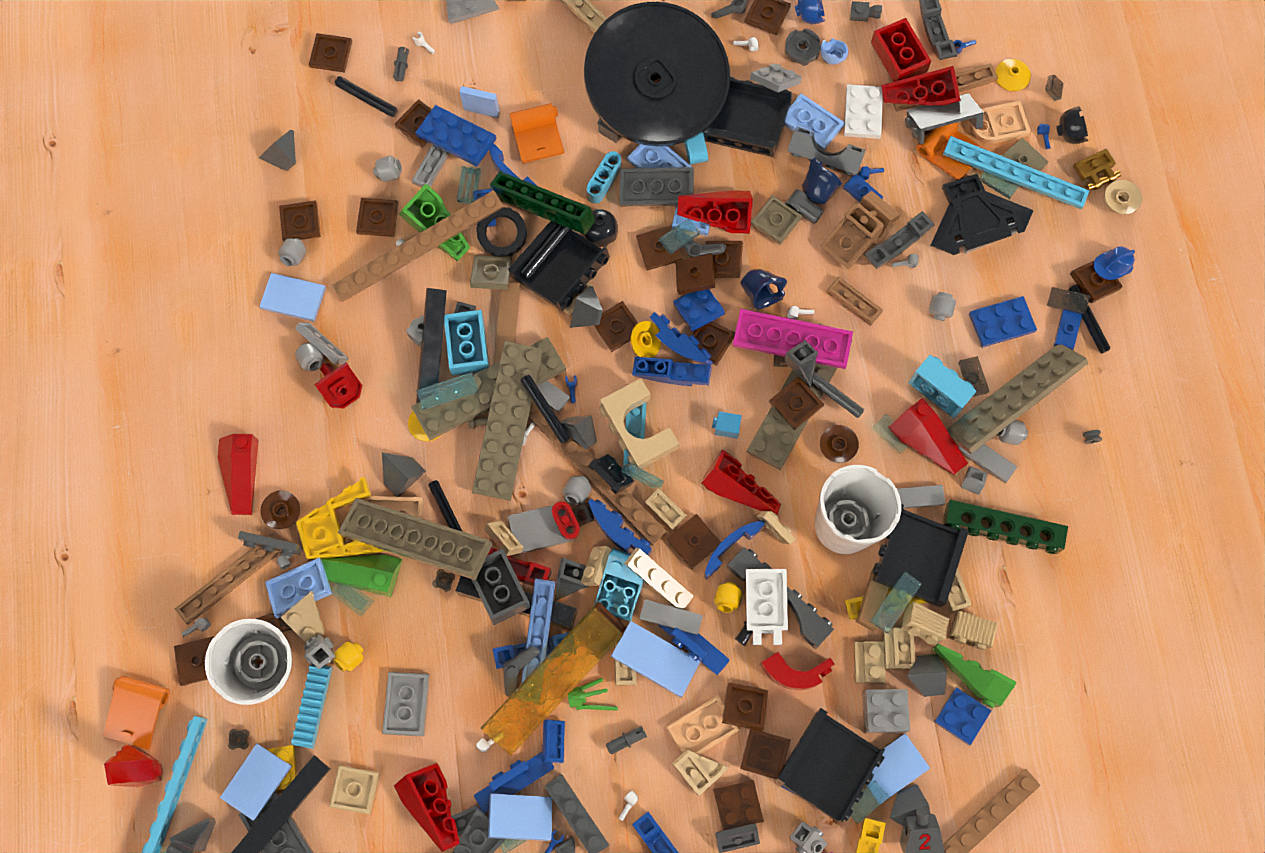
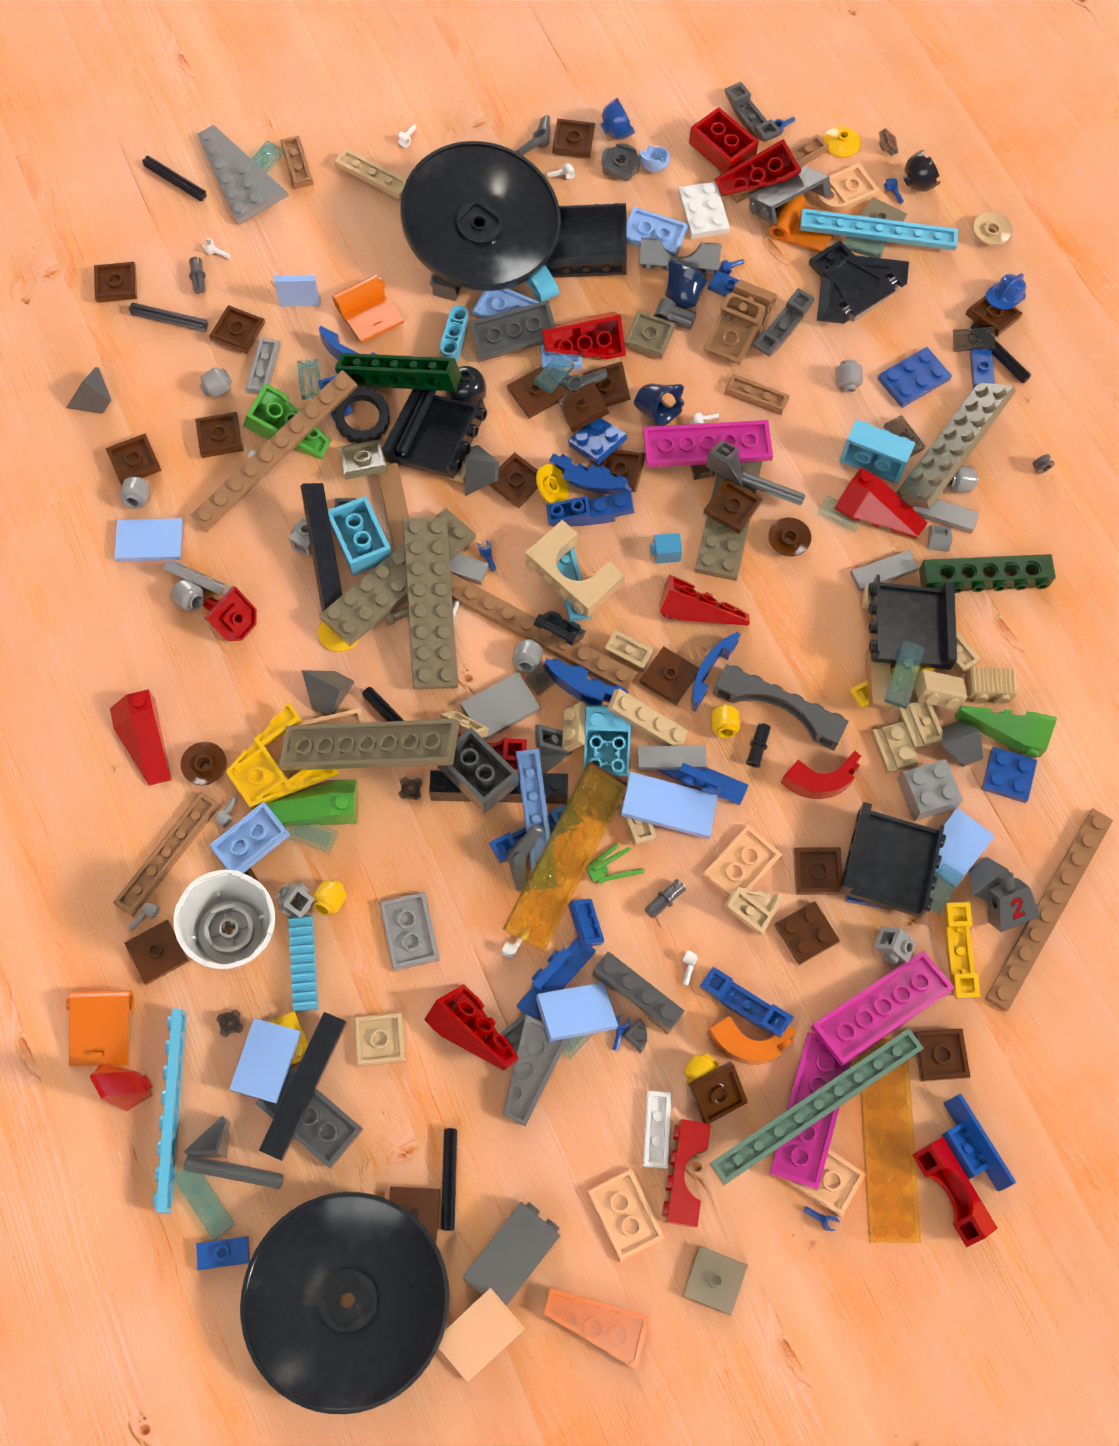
camera: 20 degrees left, 5 degrees down
(269, 544) = (203, 800): dark grey plate -> none
(304, 618) = (268, 868): tan wing -> none
(447, 391) = (355, 587): clear light blue tile -> none
(456, 135) = (281, 329): blue plate -> none
(545, 409) = (468, 578): black axle -> none
(565, 521) = (526, 689): red plate -> none
(581, 430) = (511, 592): dark grey slope -> none
(642, 475) = (594, 621): clear light blue tile -> none
(737, 838) = (818, 965): dark grey plate -> none
(745, 706) = (781, 827): reddish brown plate -> none
(766, 603) = (770, 714): white tile -> none
(775, 77) = (604, 195): light grey plate -> none
(783, 533) = (753, 636): tan plate -> none
(861, 11) = (670, 115): dark grey plate -> none
(864, 502) = (833, 590): white cone -> none
(912, 261) = (803, 342): light grey hand -> none
(1094, 165) = (953, 205): pearl gold plate -> none

